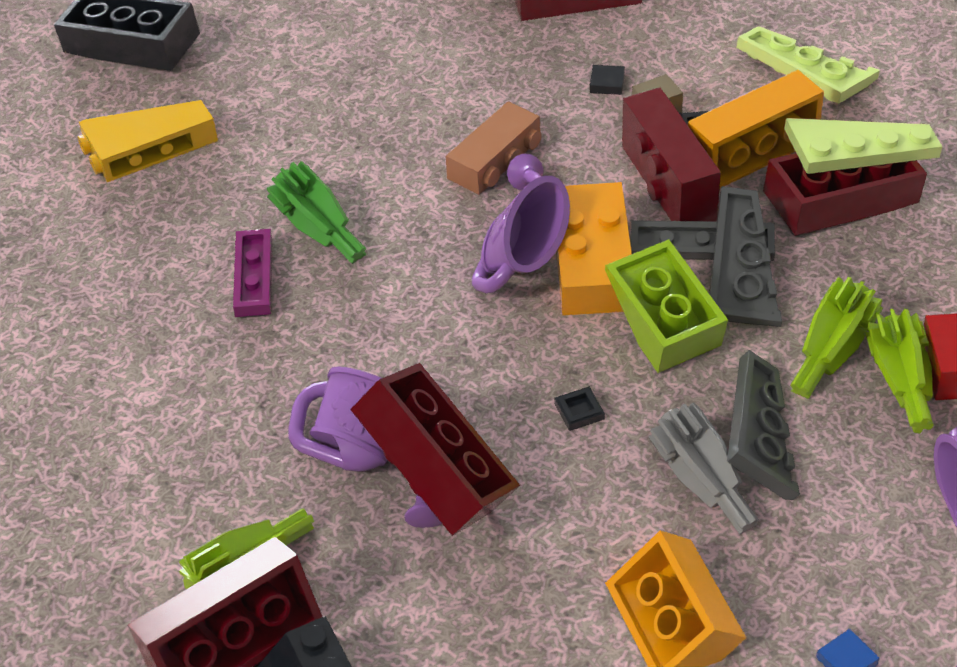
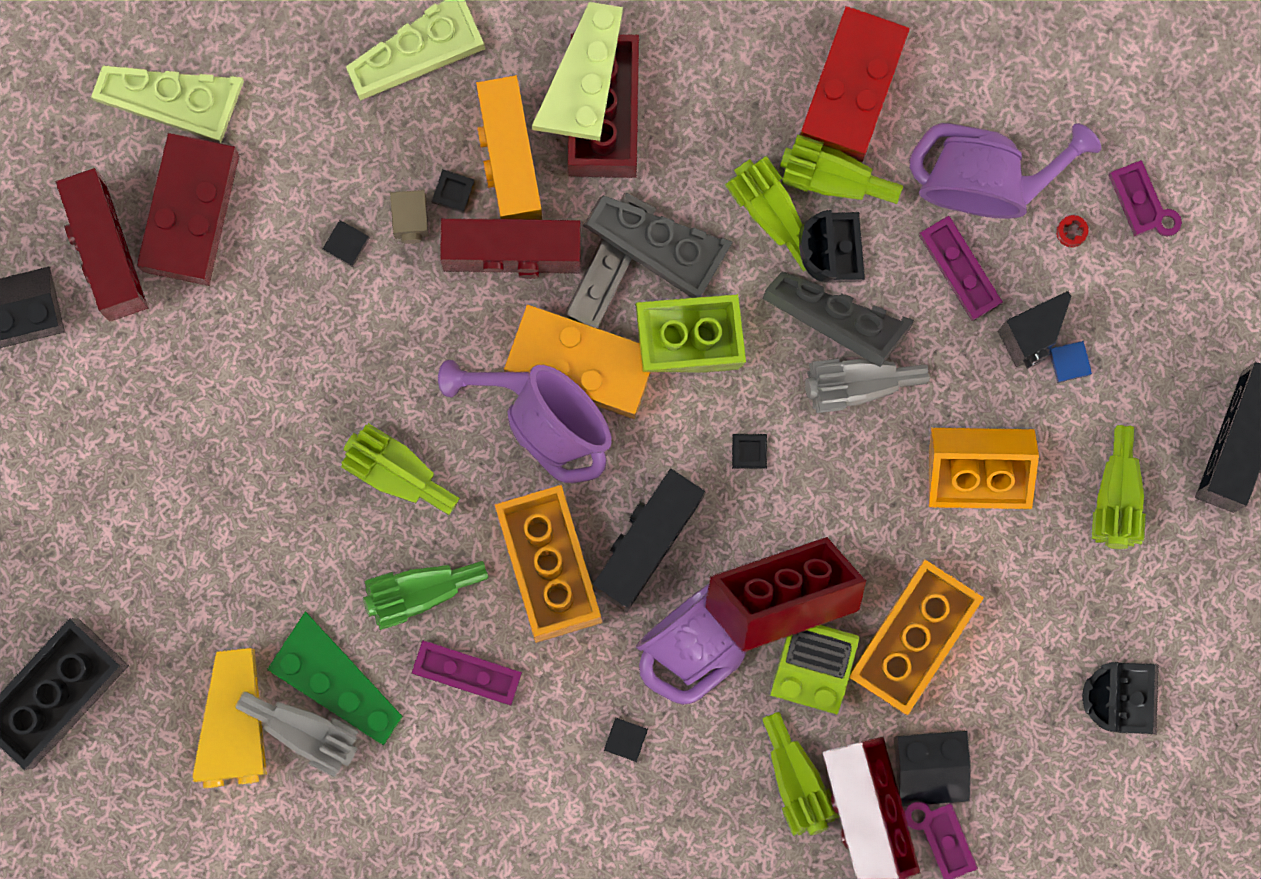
camera: 75 degrees left, 35 degrees up
(148, 175) = (309, 735): none -> light grey piece
(207, 192) = (327, 675): none -> green wing
(234, 410) = (625, 739): none -> black tile
(372, 522) = (815, 668): none -> lime slope
(382, 285) = (548, 563): none -> light orange brick
(420, 156) = (394, 469): none -> lime piece
(449, 339) = (648, 539): none -> black brick
(449, 605) = (915, 637): none -> light orange brick
(492, 146) = (405, 392): nougat brick -> none
(829, 390) = (832, 247): none -> black slope
(861, 590) = (1035, 331): none -> black slope
(881, 514) = (960, 268): none -> magenta plate

